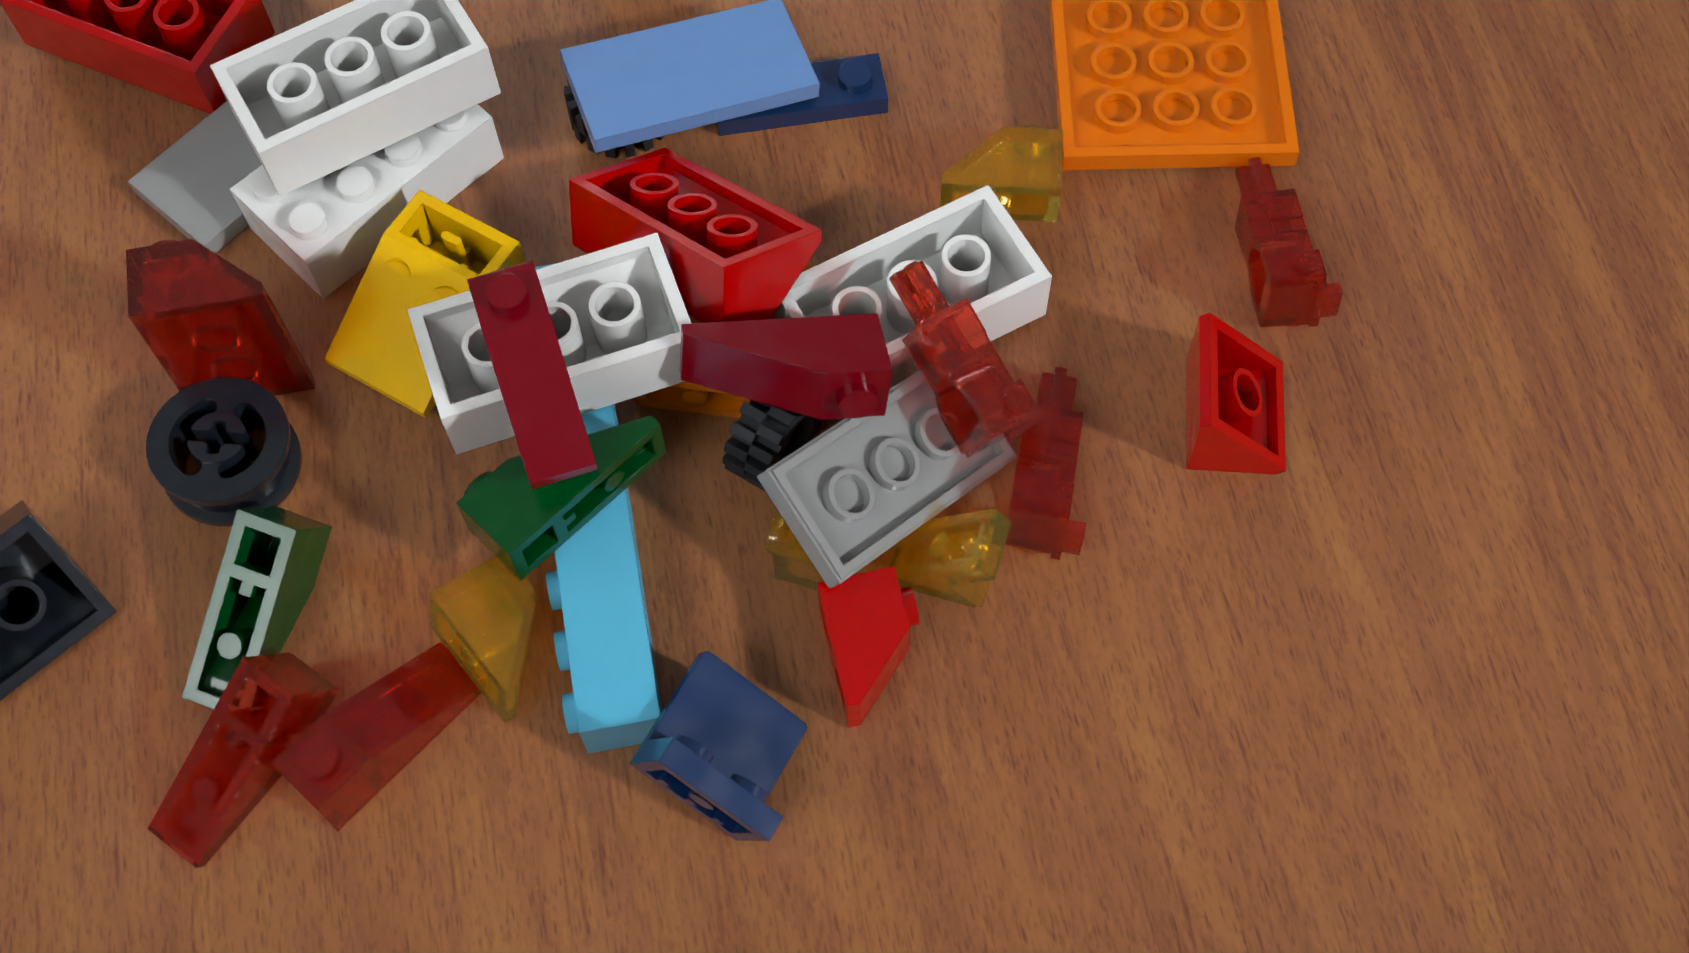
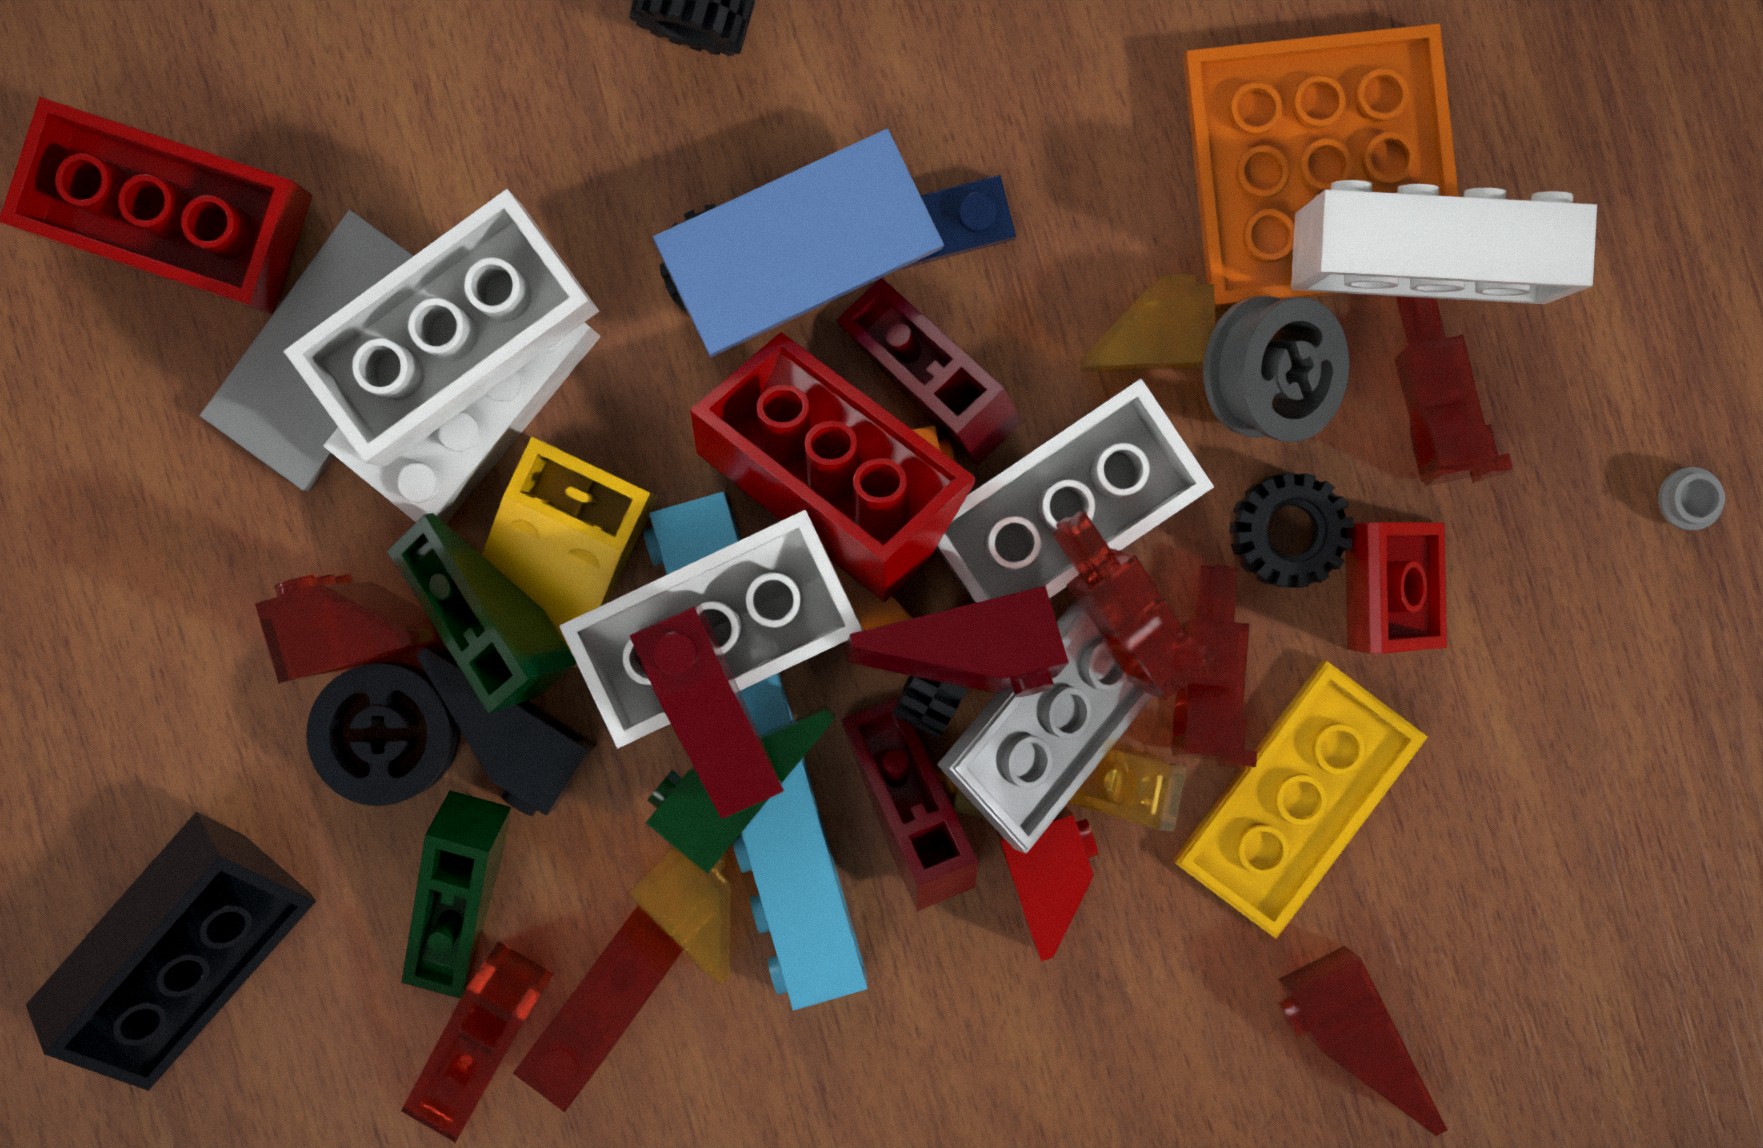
camera: 10 degrees left, 25 degrees up
(341, 340) = (482, 616): none -> dark green slope
(357, 473) = (517, 746): none -> black slope
(721, 748) = (923, 1008): dark blue bracket -> none
(734, 565) = (911, 806): none -> dark red slope
(804, 187) = (932, 371): none -> dark red slope
(1131, 600) = (1303, 801): none -> yellow tile
(1137, 319) = (1328, 522): none -> black tyre
(1140, 188) = (1302, 368): none -> dark grey wheel
(1186, 829) = (1349, 1023): none -> clear red slope
(1270, 97) = (1444, 244): none -> white brick
(1525, 354) = (1691, 498): none -> light grey plate

